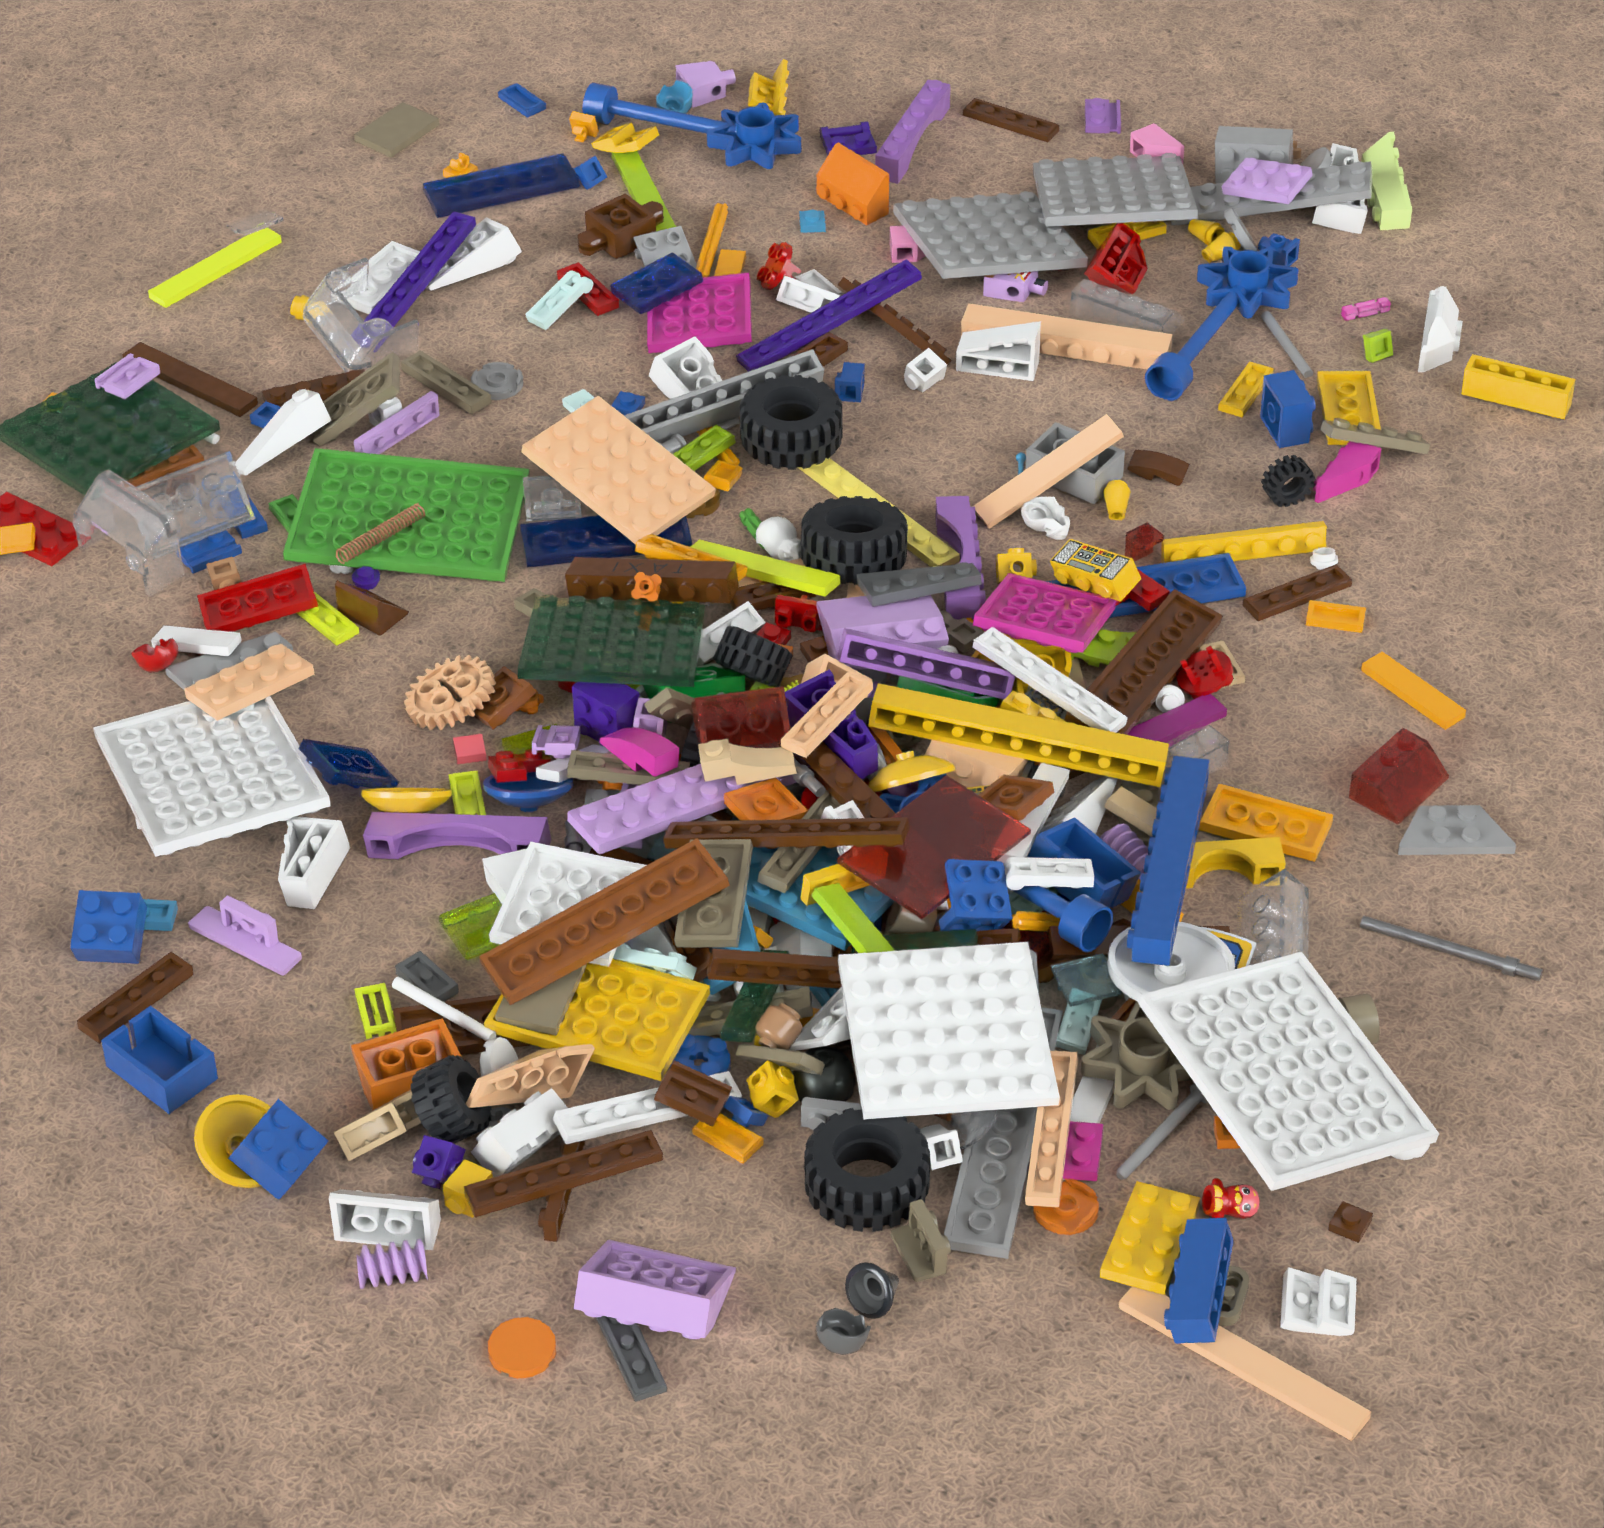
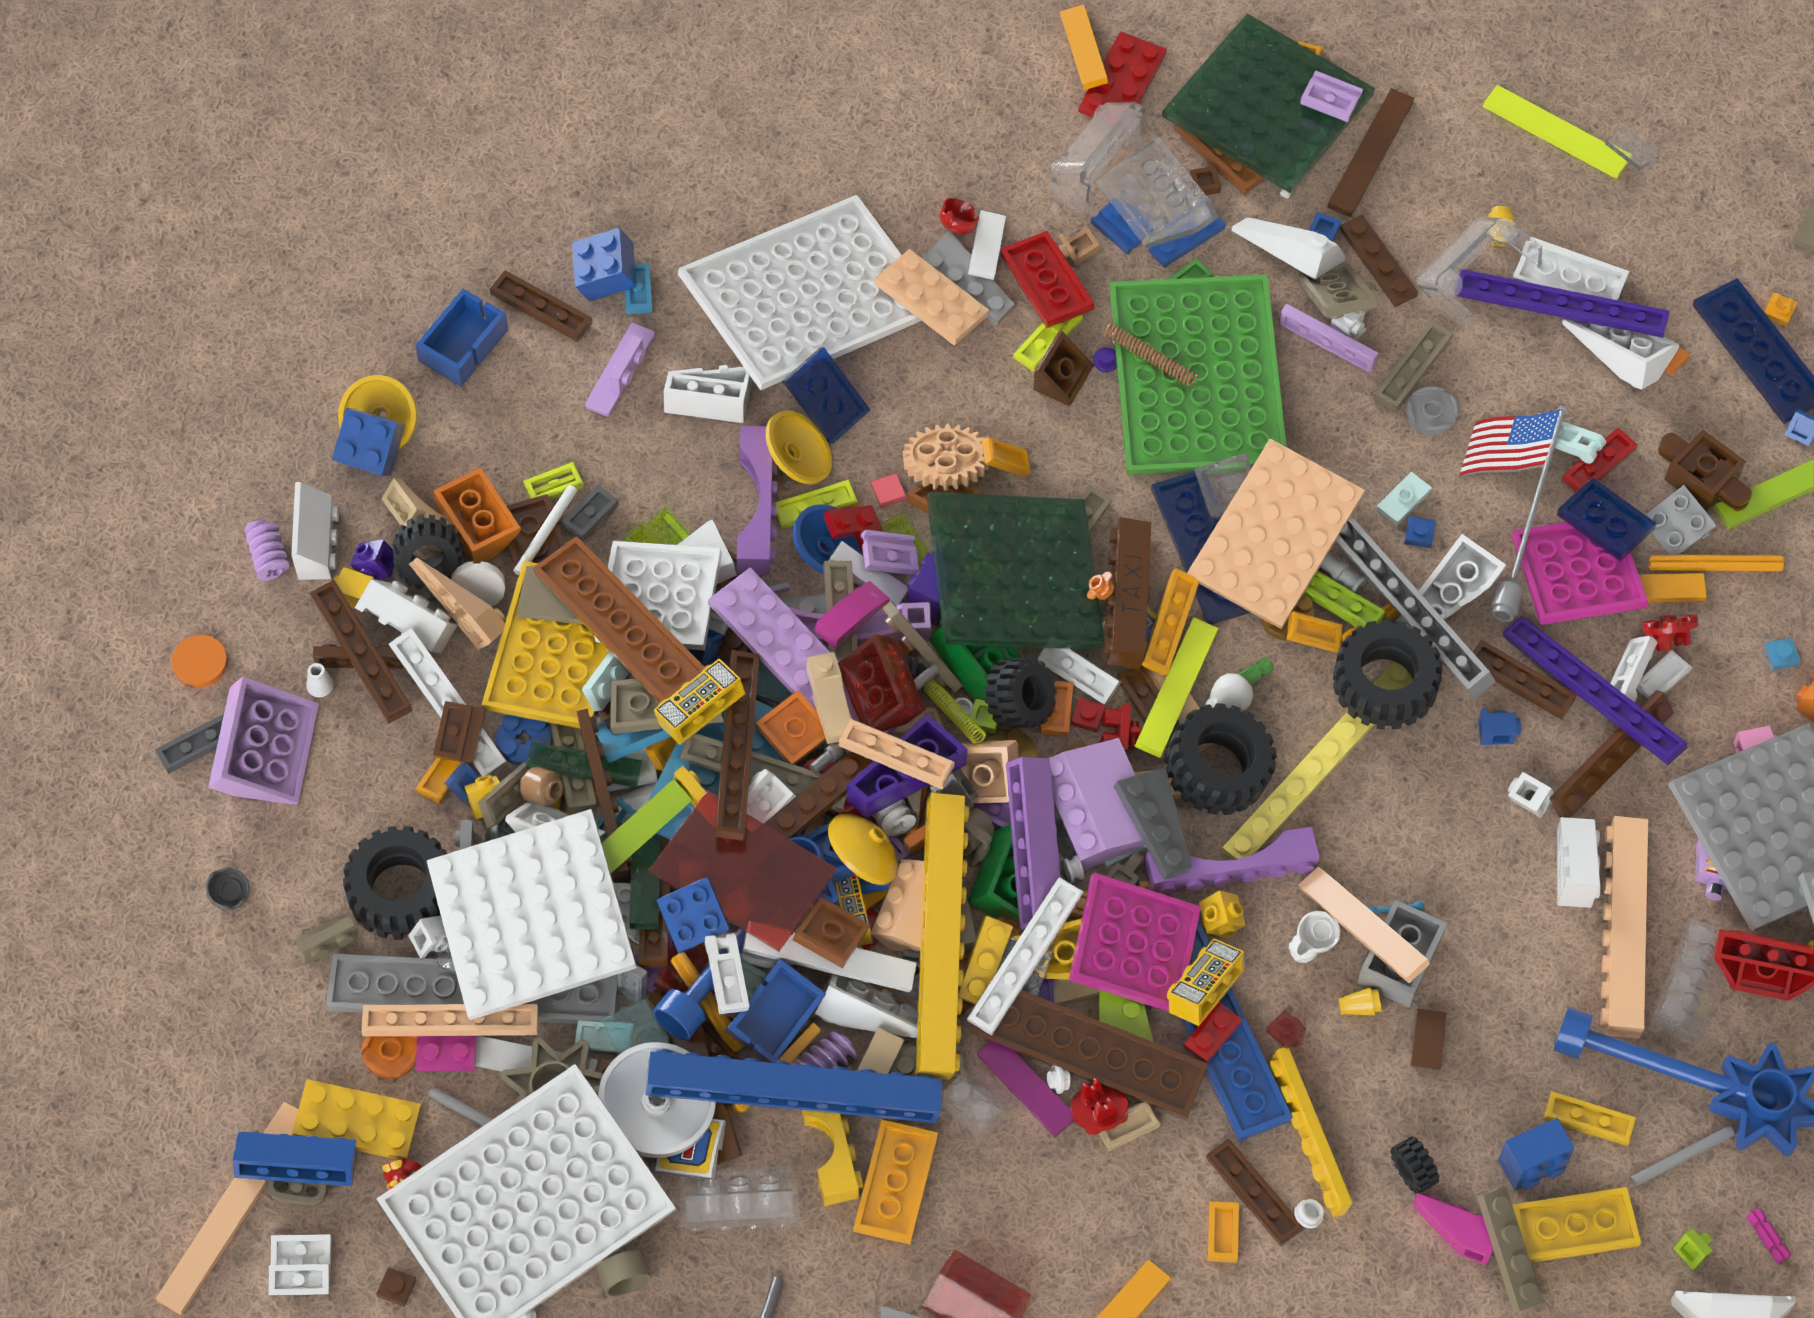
camera: 80 degrees right, 20 degrees up
(464, 649) = (1006, 457): none -> light orange tile
(559, 325) = (1513, 446): none -> flag
(583, 1228) = (318, 682): none -> white cone
(734, 847) = (699, 701): none -> brick
(863, 1286) = (277, 910): hat -> none

